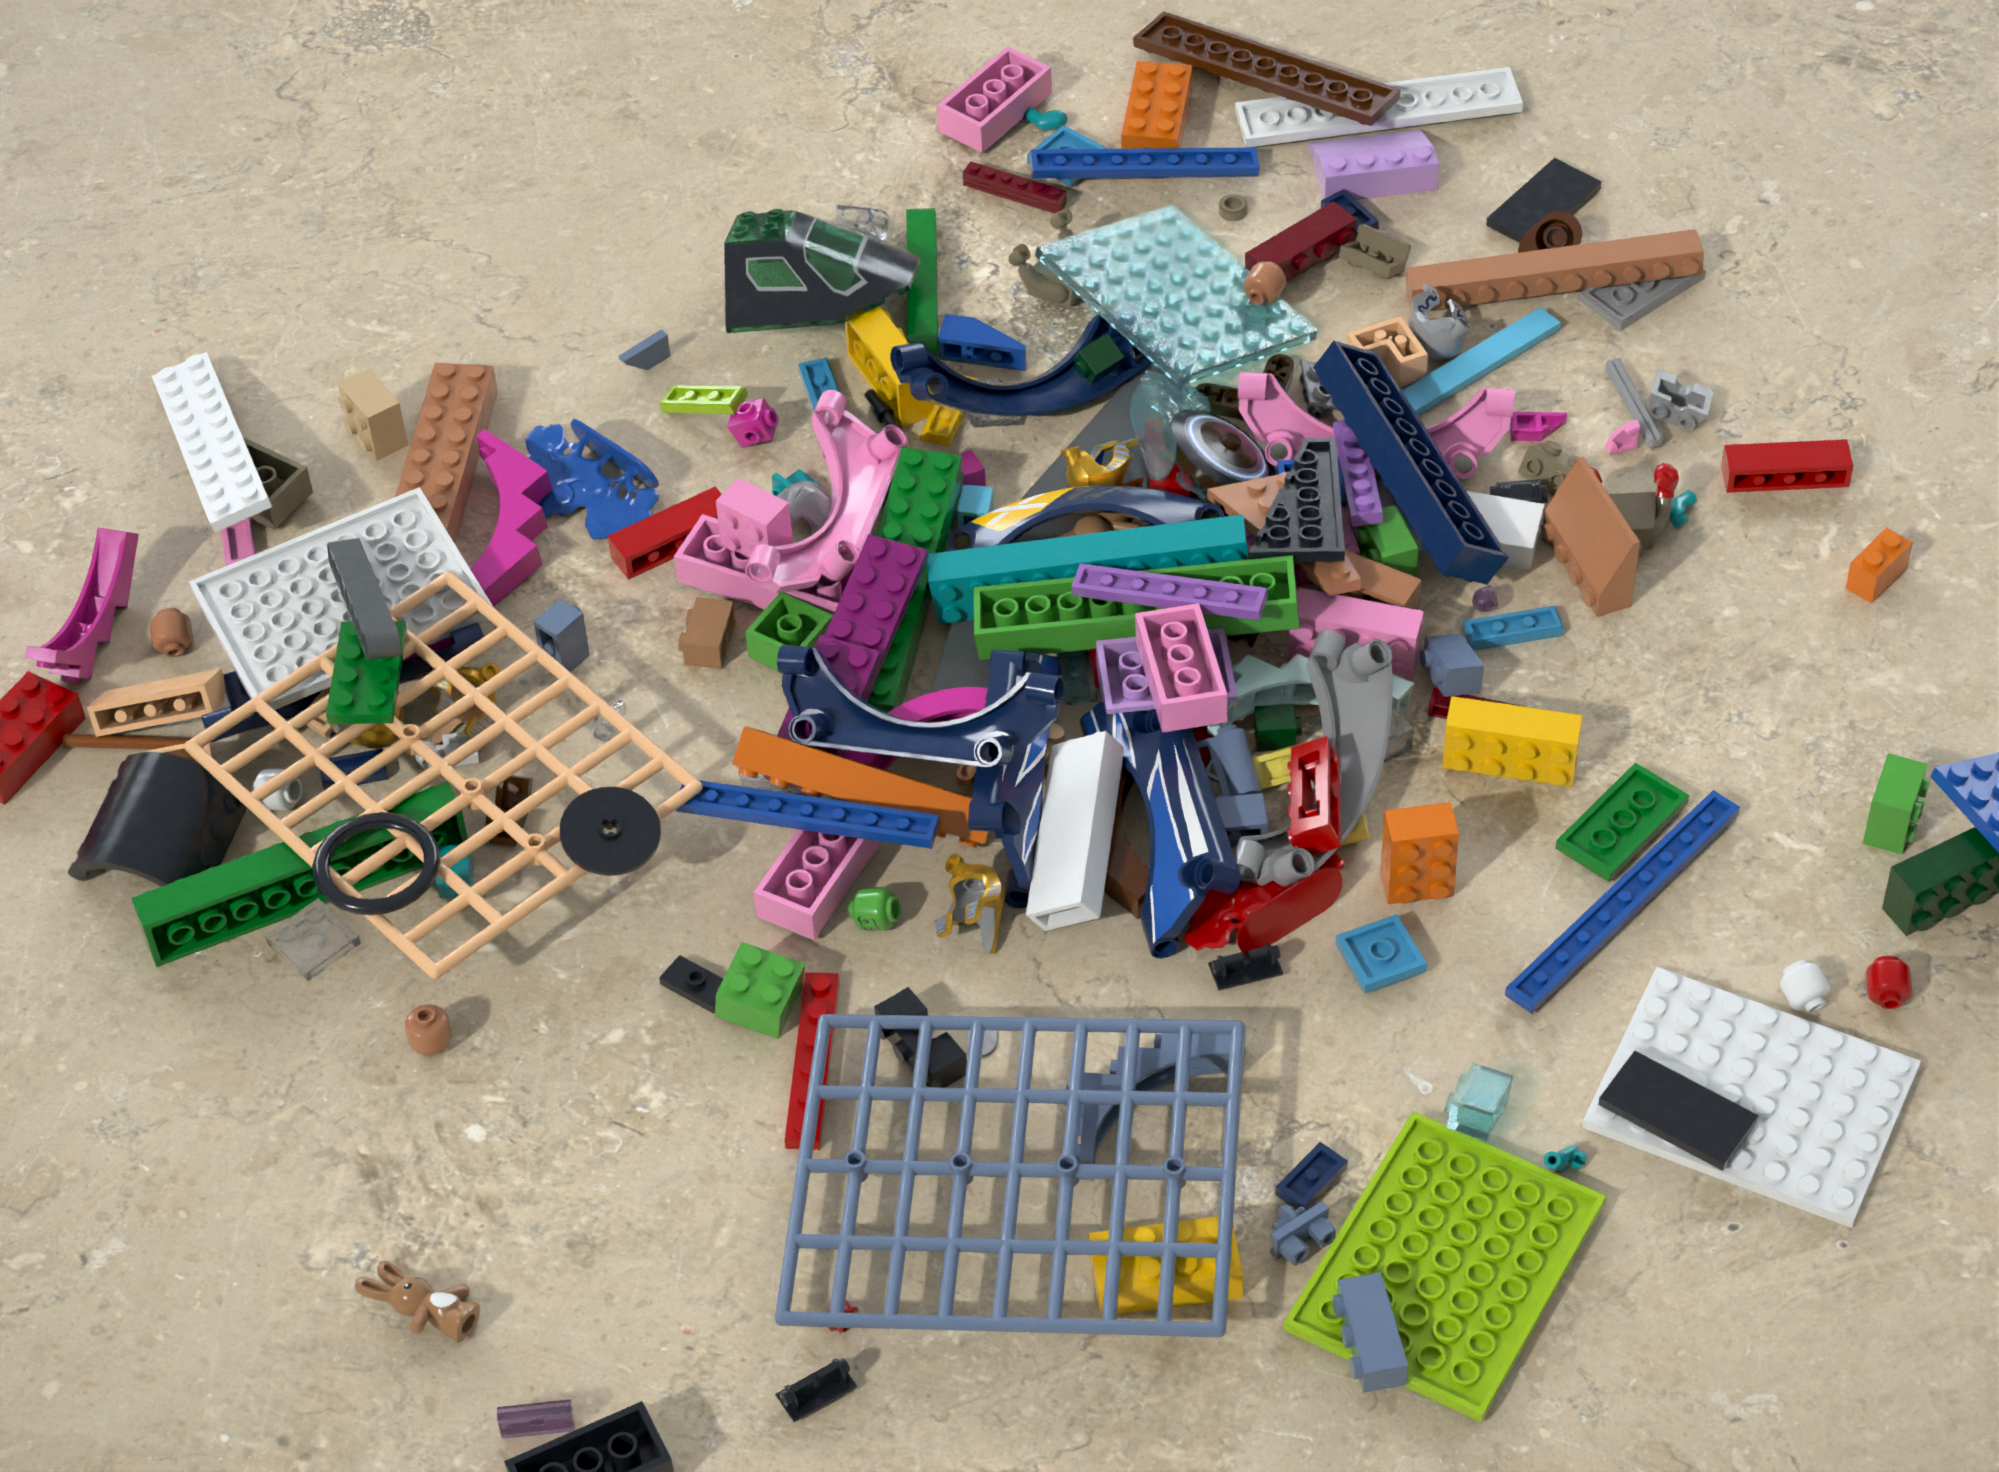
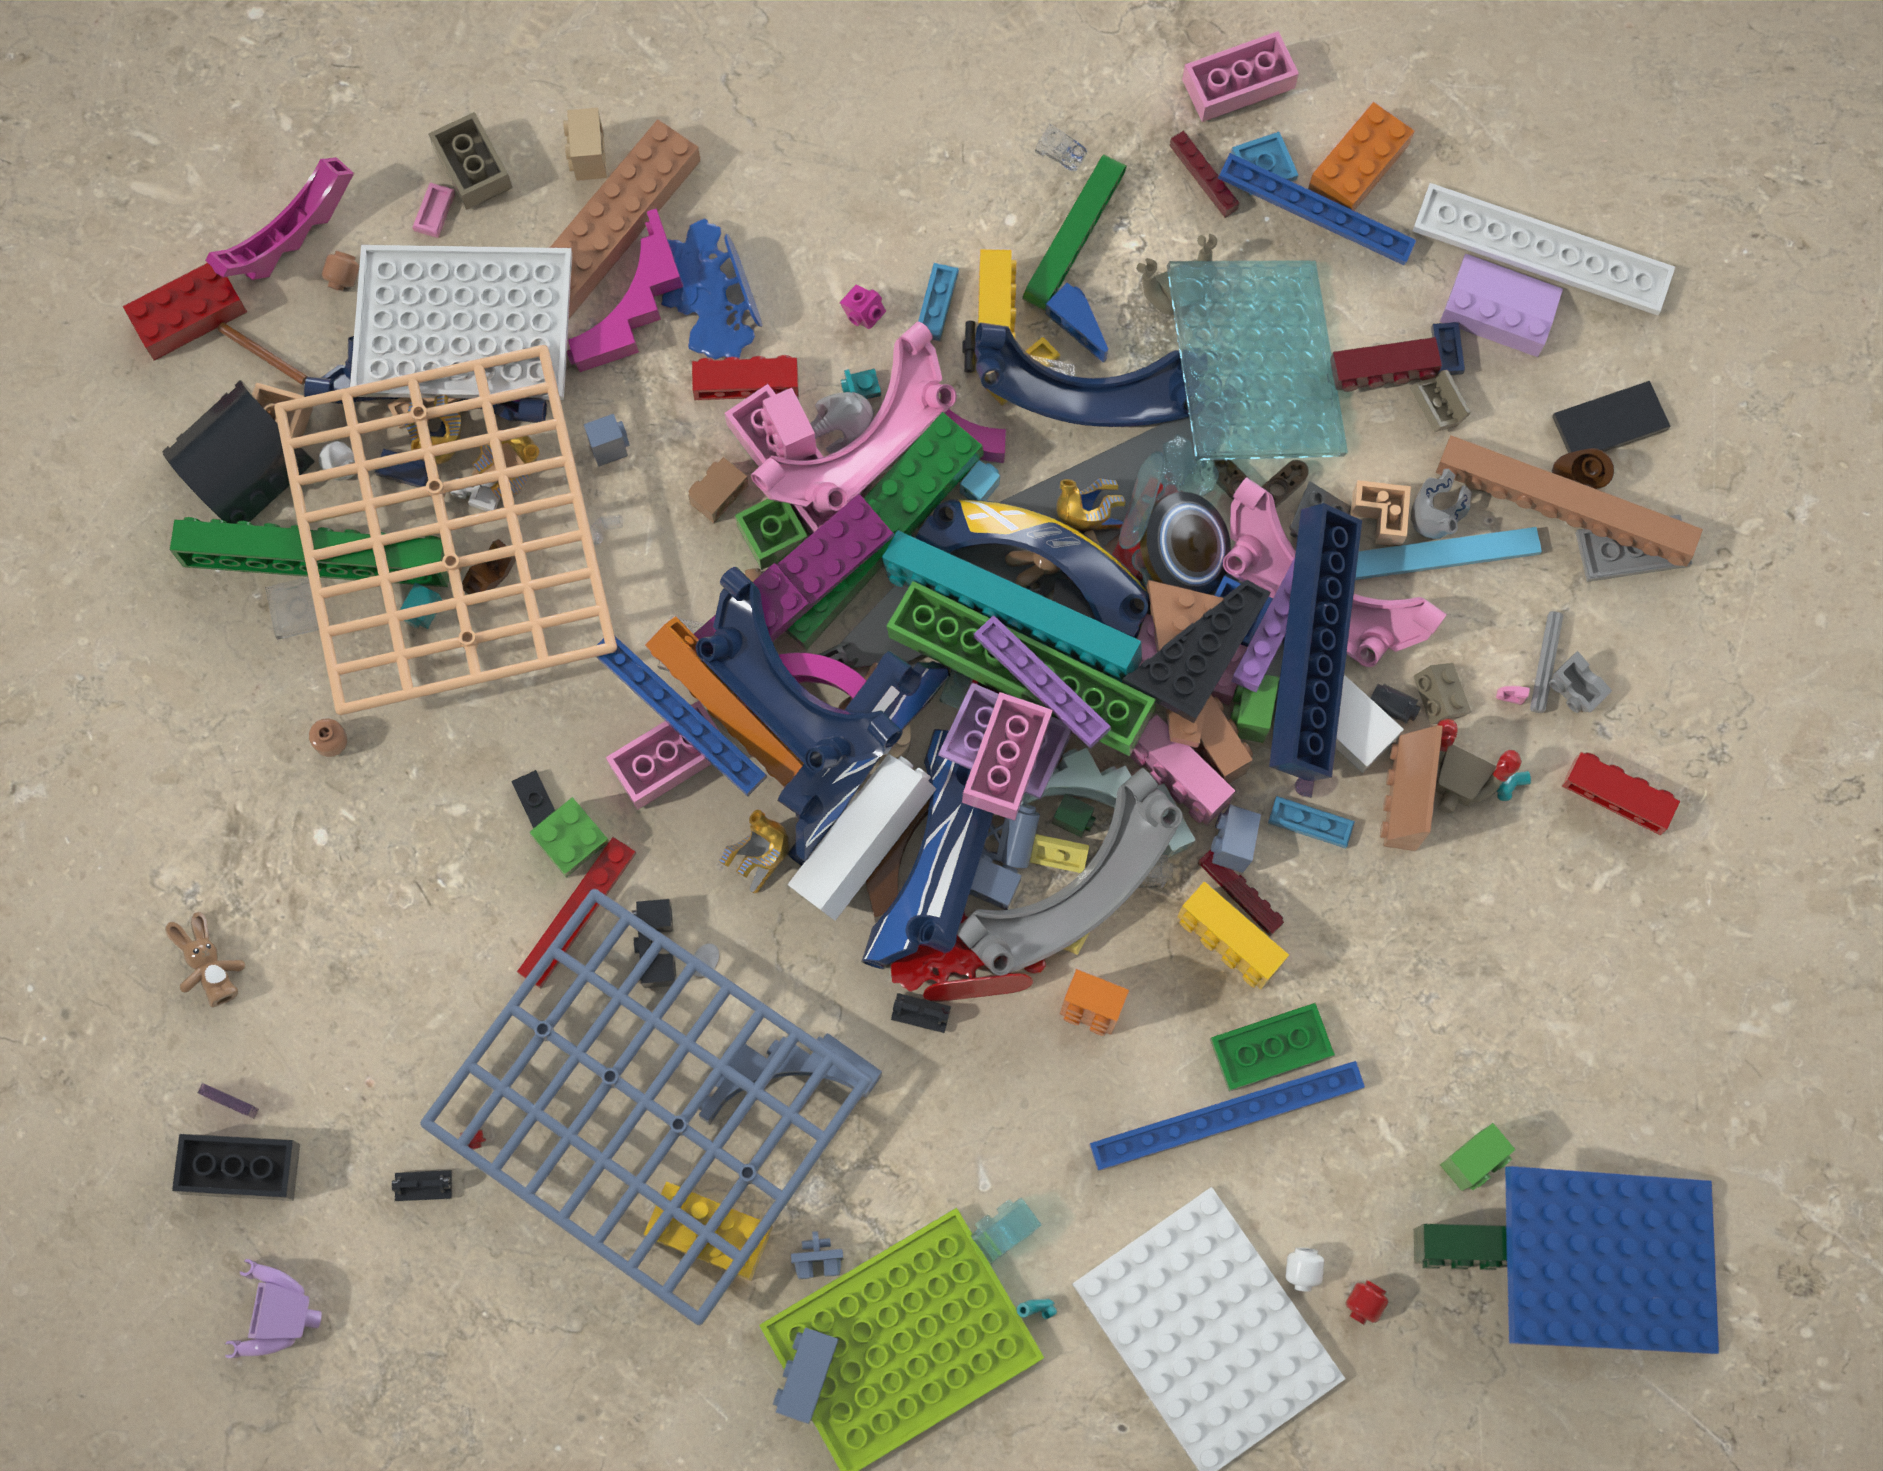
camera: 25 degrees right, 25 degrees up
(157, 702) = (293, 337): light nougat brick -> none
(211, 442) = (451, 111): white plate -> none
(362, 688) = (430, 415): green plate -> none
(363, 599) = (458, 350): dark grey beam -> none
(388, 904) = (350, 636): black wedge -> none
(611, 853) = (543, 667): black piece -> none
(648, 352) = (824, 190): sand blue tile -> none
(703, 399) = (839, 263): lime tile -> none
(806, 271) = (980, 194): windscreen -> none
(875, 909) = (691, 811): bright green head -> none
(1046, 121) = (1272, 116): teal arm -> none
(1098, 359) = (1154, 394): dark green brick -> none
(1233, 207) = (1363, 288): dark tan tile -> none
(1264, 283) = (1327, 392): nougat head -> none
(1267, 68) = (1476, 163): reddish brown plate -> none
(1309, 829) = (1052, 906): red brick -> none
(1311, 1177) = (854, 1217): dark blue plate -> none
(1381, 953) = (1022, 1058): dark azure plate -> none
(1535, 425) = (1455, 639): dark pink tile -> none
(1678, 1110) = (1139, 1321): black tile -> none
(1879, 565) = (1624, 929): orange brick -> none

